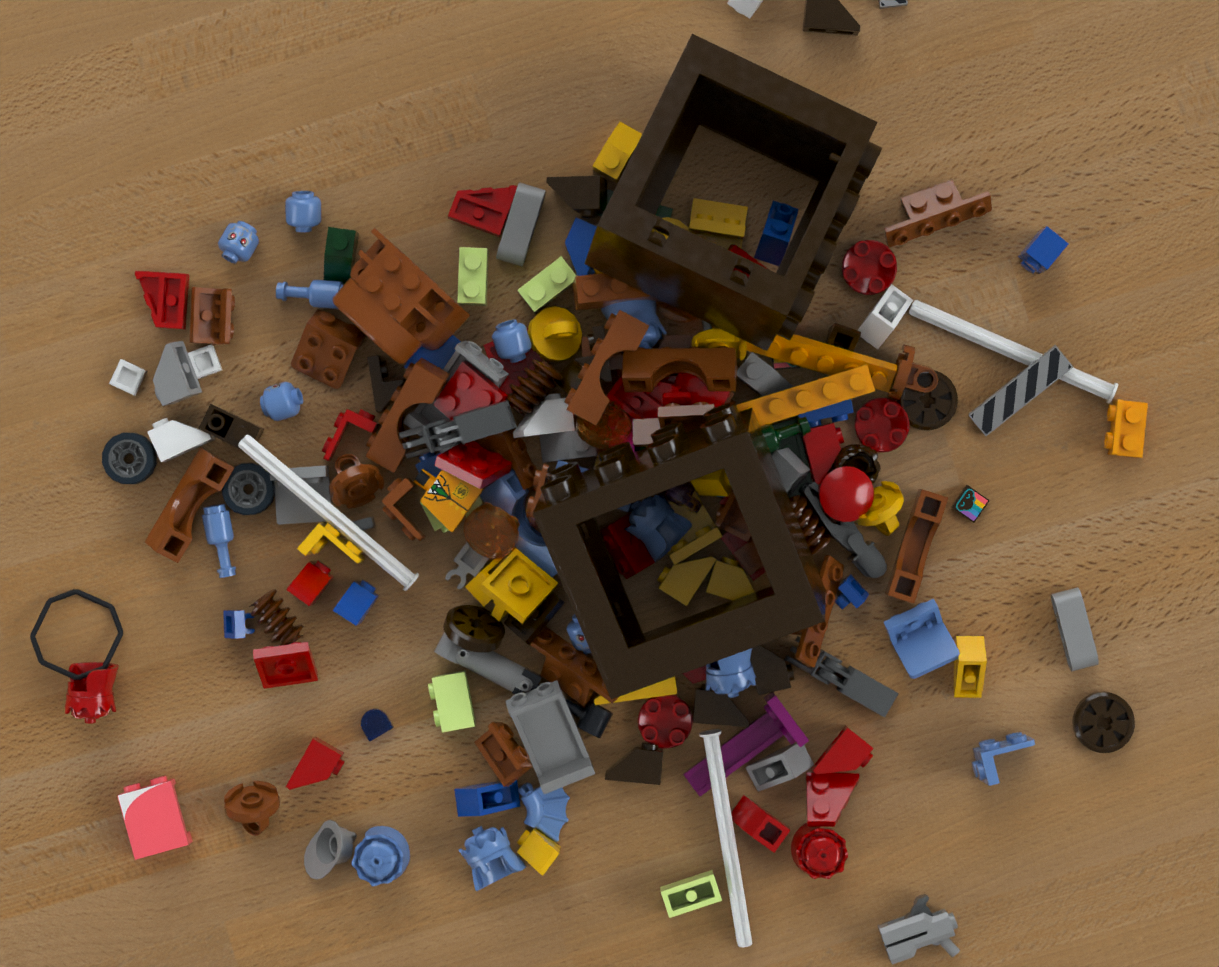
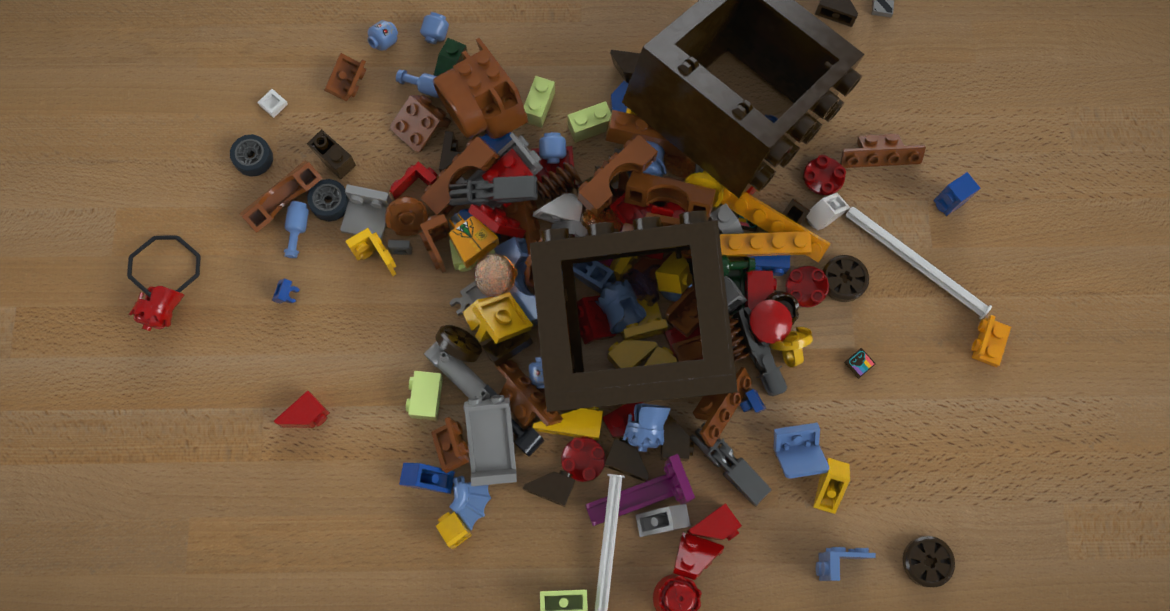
camera: 15 degrees right, 15 degrees down
(153, 817) = (164, 417): coral panel -> none
(166, 297) = (319, 57): red wing -> none
(175, 375) = (304, 107): light grey slope -> none
(176, 438) = (290, 151): white slope -> none
(205, 361) = (330, 108): white tile -> none
(252, 805) = (243, 430): dark orange tile -> none
(276, 619) = (312, 297): reddish brown piece -> none
(281, 401) = (374, 146): medium blue head -> none
(285, 665) = (307, 329): red plate -> none
(311, 582) = (349, 275): red slope -> none
(327, 511) = (379, 226): white axle -> none
(328, 848) = (290, 481): light grey piece -> none
(356, 602) = (377, 299): blue slope -> none
(375, 723) = (361, 397): clear blue tile -> none
(381, 855) = (328, 499): medium blue hat -> none
(483, 208) = (560, 61): red wing -> none
(490, 856) = (413, 525): medium blue hat -> none
(520, 224) = (583, 78): light grey beam -> none
(555, 334) = (585, 154): yellow tile -> none
(759, 823) = (635, 561): red slope -> none
(908, 372) = (837, 251): dark orange tile -> none
(915, 545) = (812, 379): dark orange arch -> none
(1020, 390) = (917, 289): tile -> none
(1074, 629) = (921, 480): light grey beam -> none

